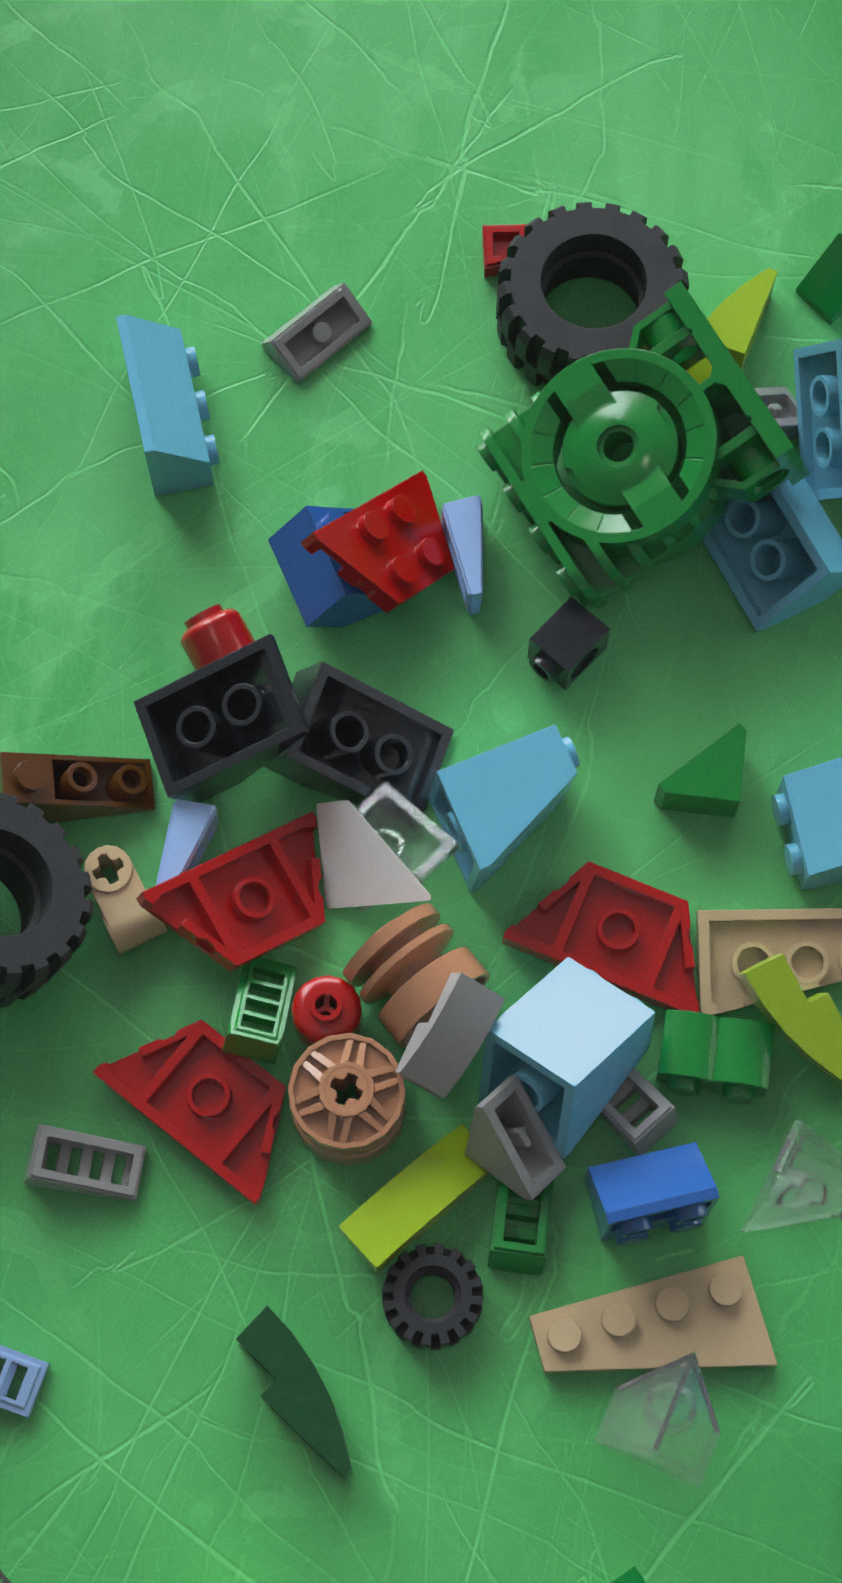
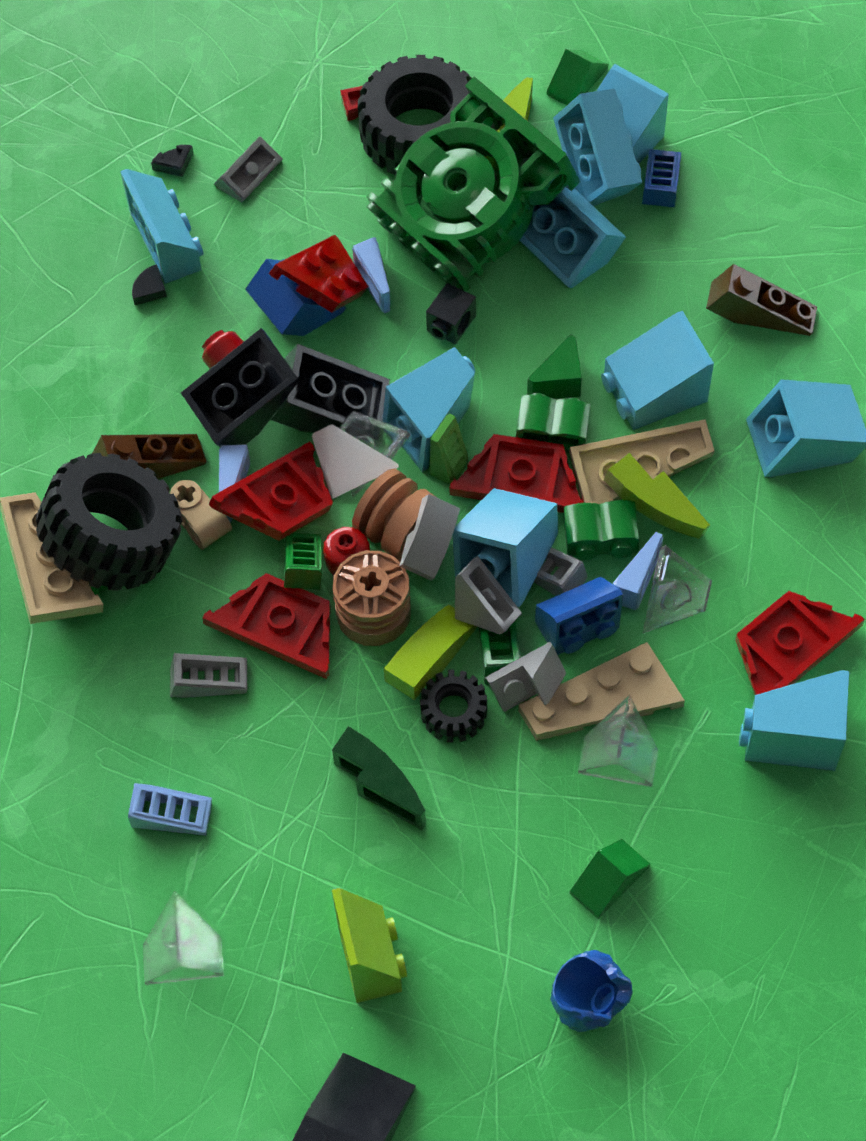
camera: 10 degrees left, 10 degrees down
(128, 498) = (148, 286): none -> black tile
(209, 293) = (173, 161): none -> black tile
(513, 881) = (447, 451): none -> bright green slope
(560, 1277) = (532, 674): none -> light grey slope
(683, 859) = (553, 420): none -> green brick
(744, 1152) = (638, 573): none -> light blue slope

